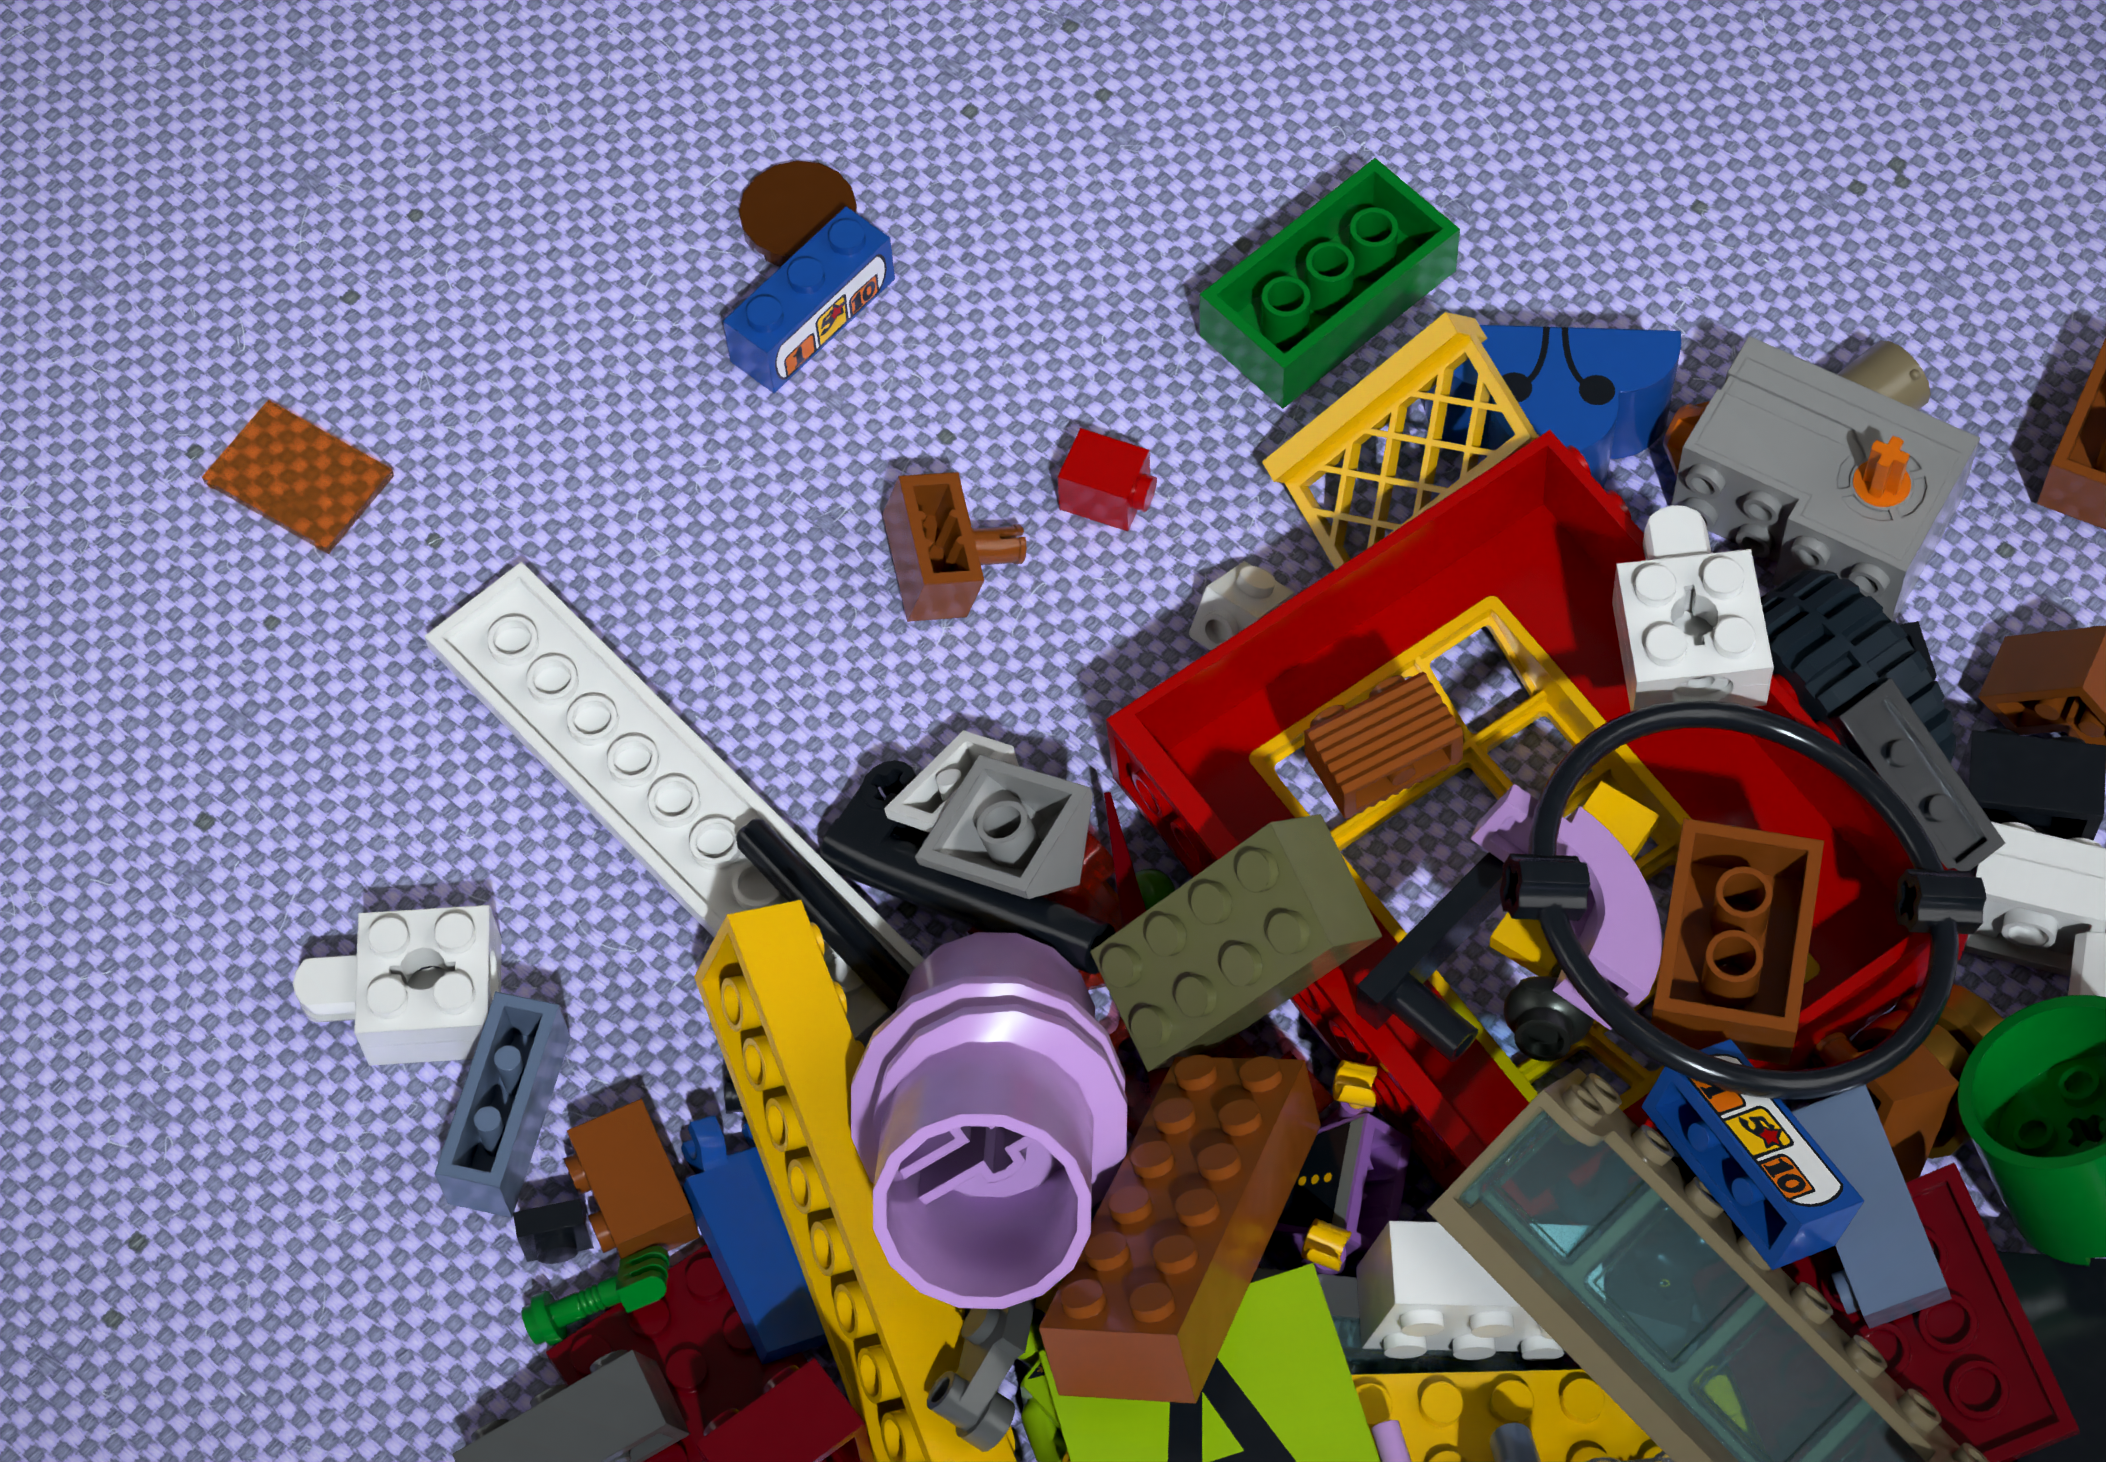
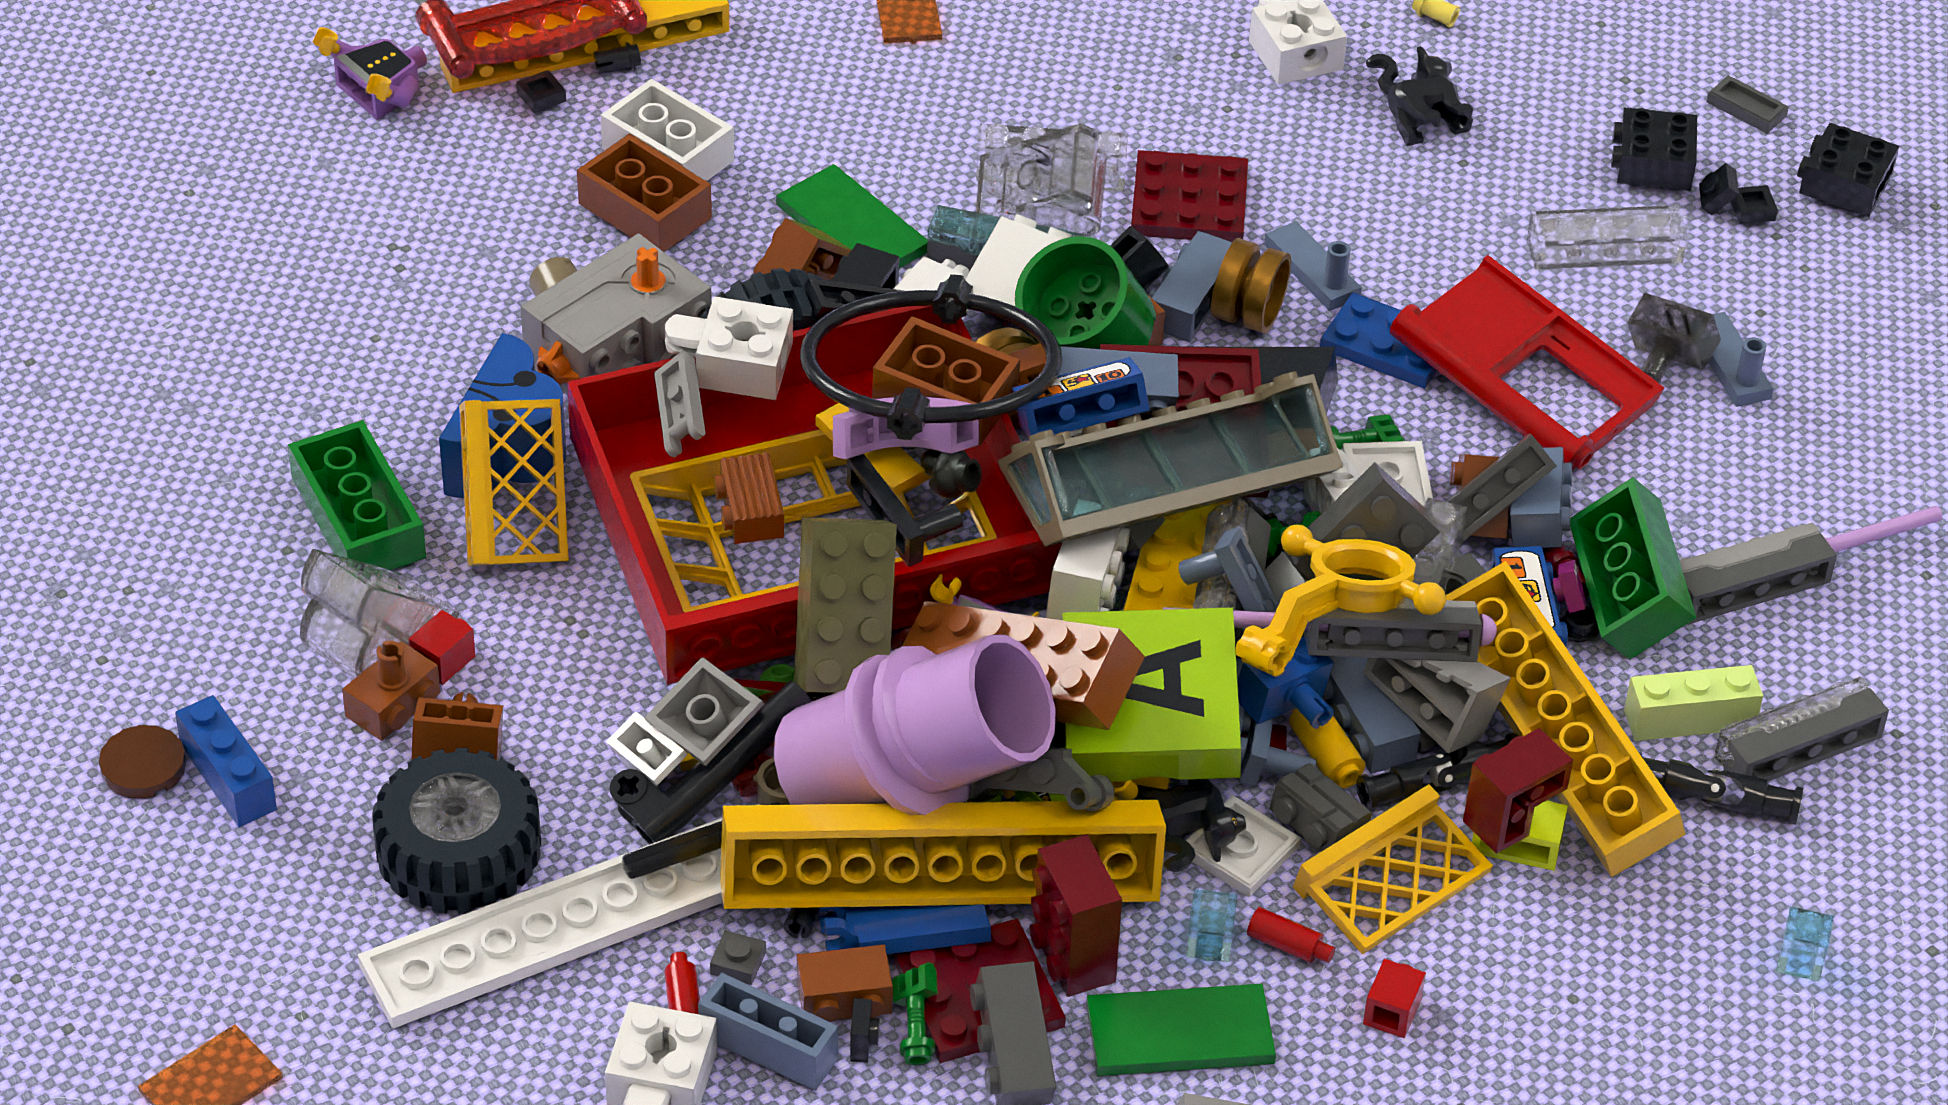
camera: 80 degrees left, 15 degrees down
(574, 974) = (682, 984): none -> red cylinder
(661, 1032) = (738, 957): none -> dark grey plate
(755, 603) = (457, 830): none -> black wheel
(1002, 445) = (390, 688): none -> dark orange brick
(1105, 361) = (360, 608): none -> clear brick
(1235, 603) = (570, 608): white bracket -> none
(1537, 588) = (679, 402): none -> light grey hinge

